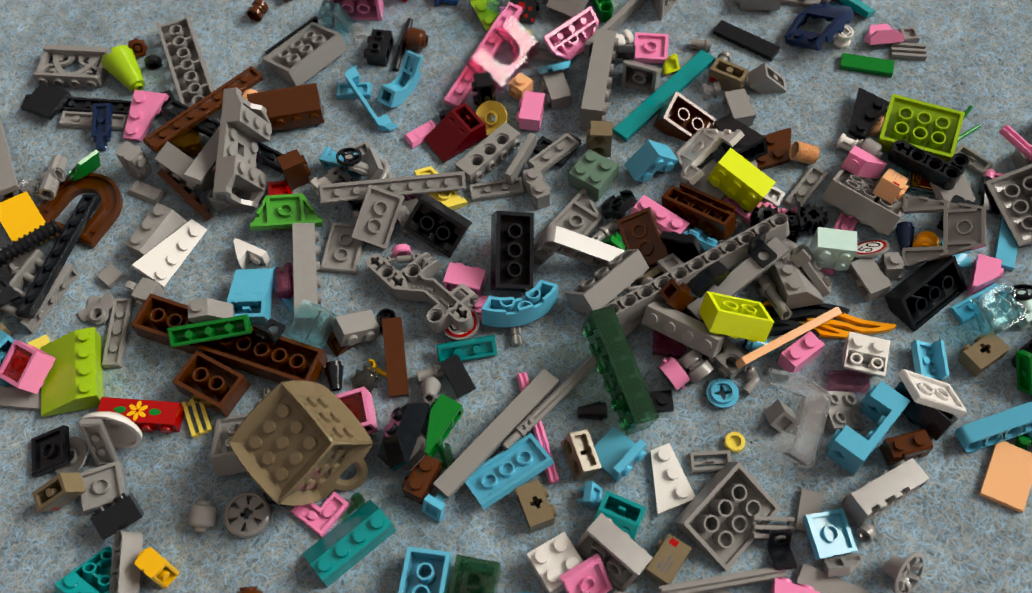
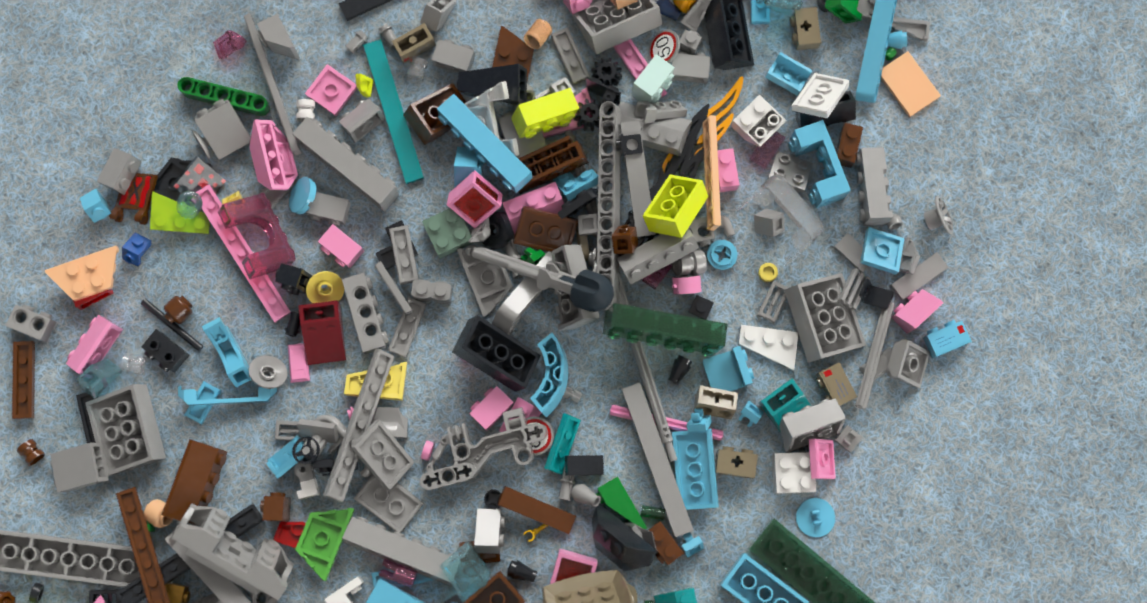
camera: 65 degrees left, 20 degrees up
(260, 39) = (79, 467): none -> light grey brick
(365, 378) = (541, 547): clear smoke piece -> none
(401, 115) = (268, 366): none -> light grey dish
(437, 225) = (421, 403): black slope -> none
(520, 84) = (306, 241): light nougat brick -> none
(554, 447) = (699, 421): none -> medium azure tile
(600, 137) = (415, 203): dark tan brick -> none
(607, 193) = (481, 232): none -> light grey piece
(609, 276) = (586, 290): none -> piece
(626, 51) = (330, 118): black slope -> none
(631, 170) = (474, 199): none -> piece
(682, 153) = (484, 143): none -> medium azure brick
(706, 278) = (625, 204): black slope -> none
(768, 290) = (655, 157): light grey pin -> none

